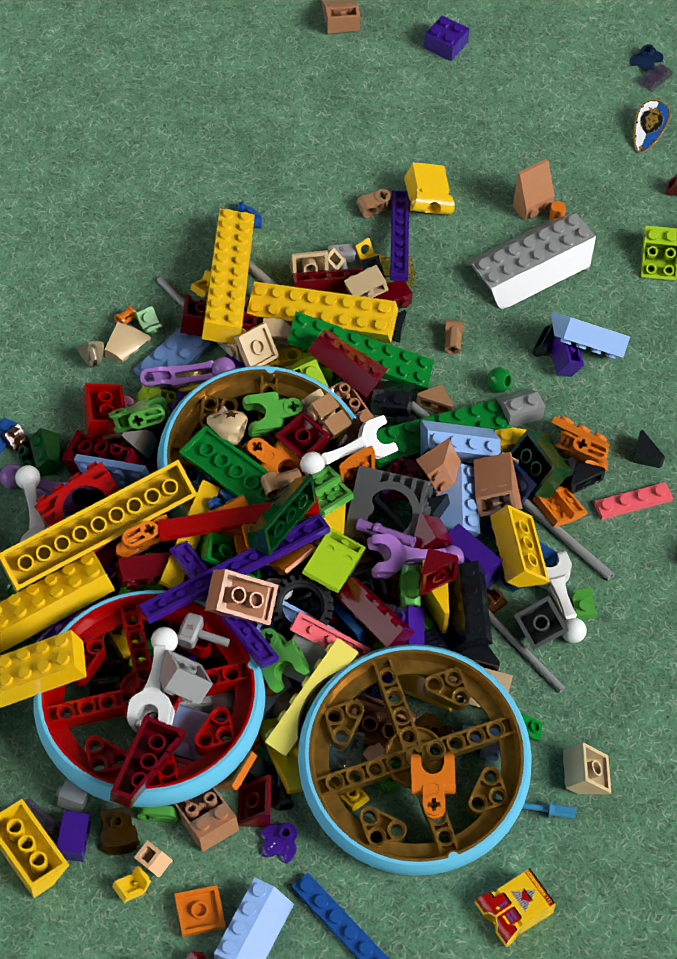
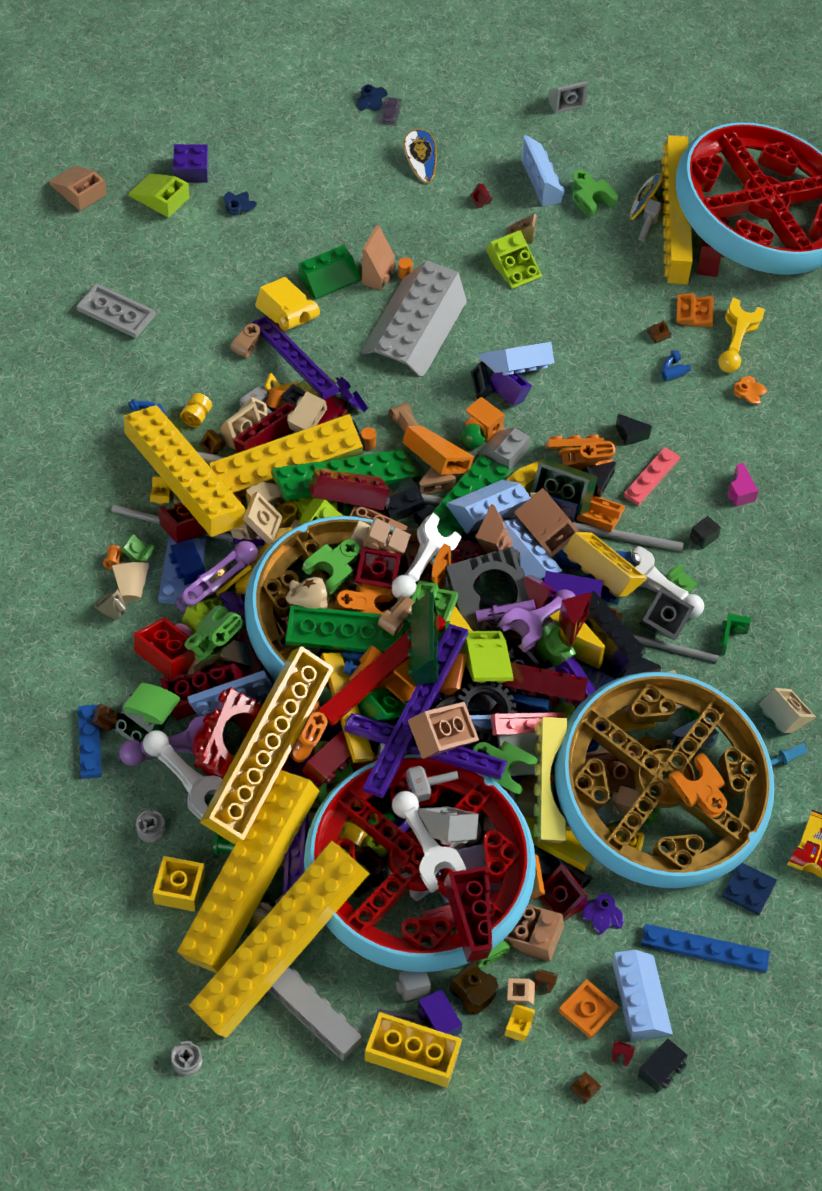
camera: 35 degrees left, 0 degrees up
(49, 444) = (152, 703): none -> bright green slope
(176, 349) = (187, 561): none -> clear blue brick
(187, 863) = (545, 976): none -> reddish brown tile
(279, 269) = (211, 442): none -> reddish brown tile
(287, 236) = (196, 410): none -> yellow wheel
(290, 125) = (116, 310): none -> light grey plate
(355, 261) = (274, 398): none -> orange piece
(403, 51) = (161, 193): none -> lime slope
(408, 334) = (369, 438): none -> orange piece
(420, 292) = (355, 401): none -> dark purple piece
(425, 902) = (749, 888): none -> dark blue plate
(455, 376) = (437, 451): none -> orange slope
(461, 90) = (238, 203): none -> dark blue plate
(489, 182) = (328, 272): none -> green slope
(522, 371) = (486, 416): none -> orange piece
(600, 666) = (735, 623): none -> green bracket
(639, 575) = (705, 532): none -> pearl dark grey brick

